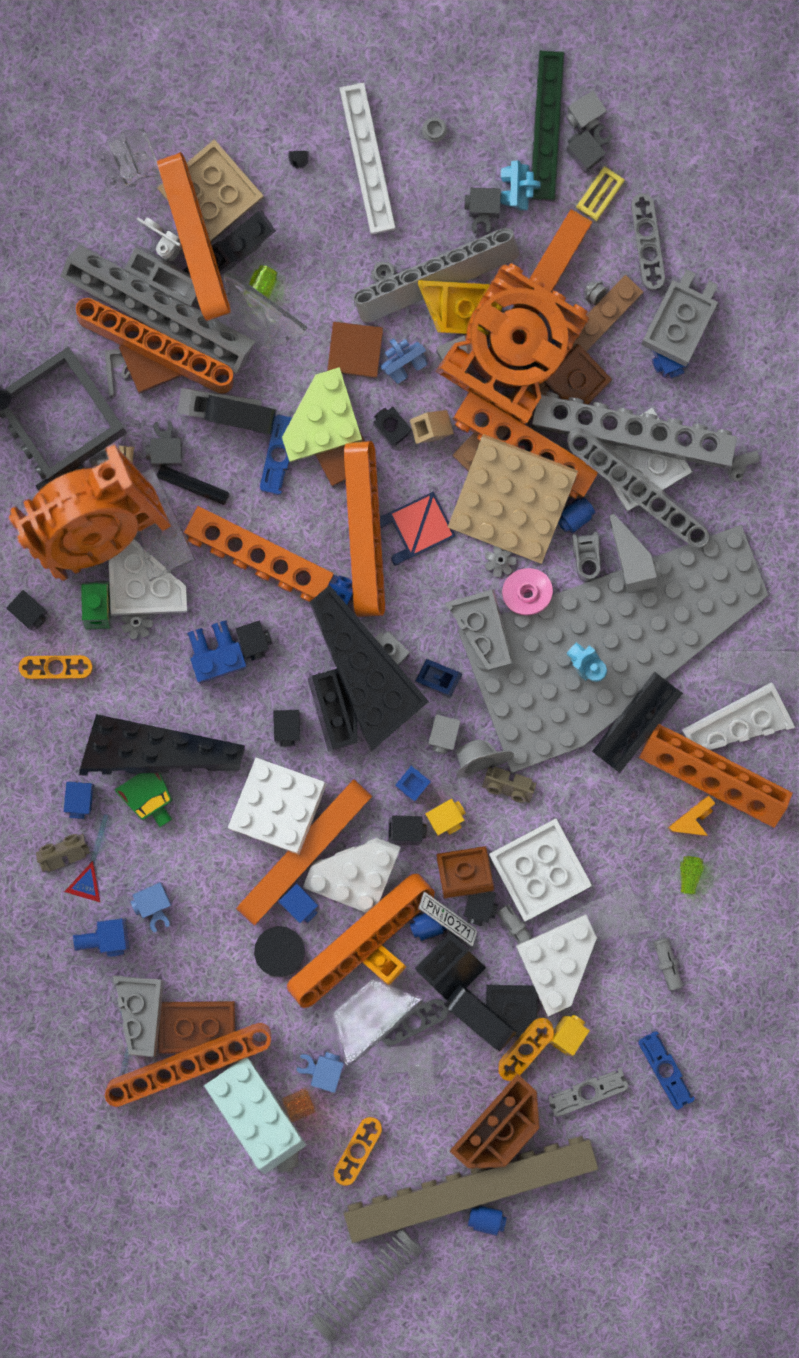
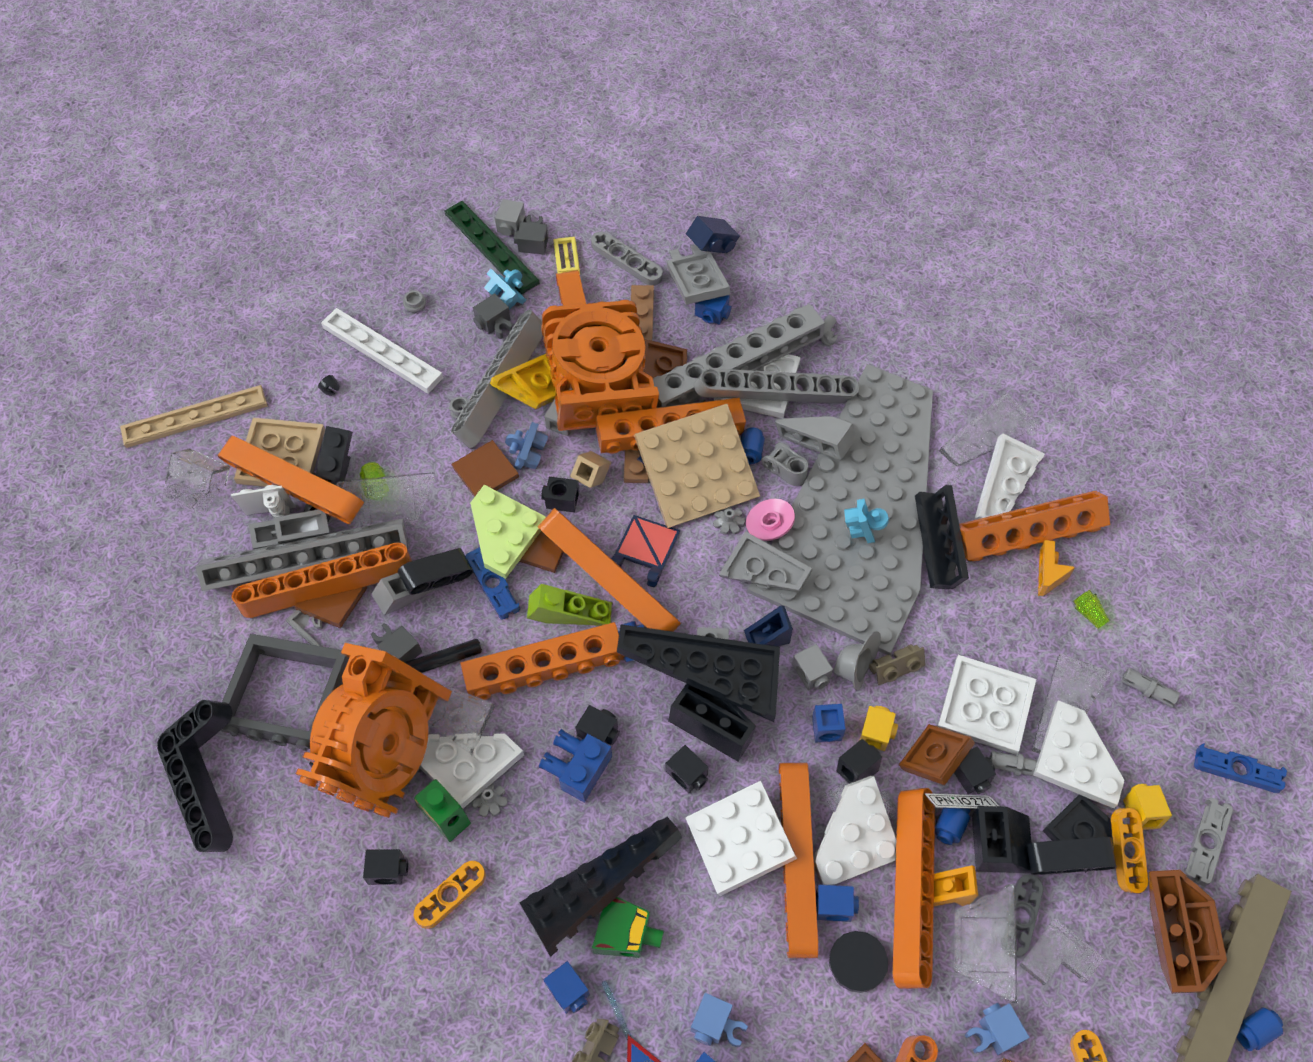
camera: 35 degrees left, 25 degrees down
(172, 91) = (193, 416): none -> tan tile
(314, 528) = (562, 606): none -> lime slope
(733, 291) = (712, 234): none -> dark blue piece

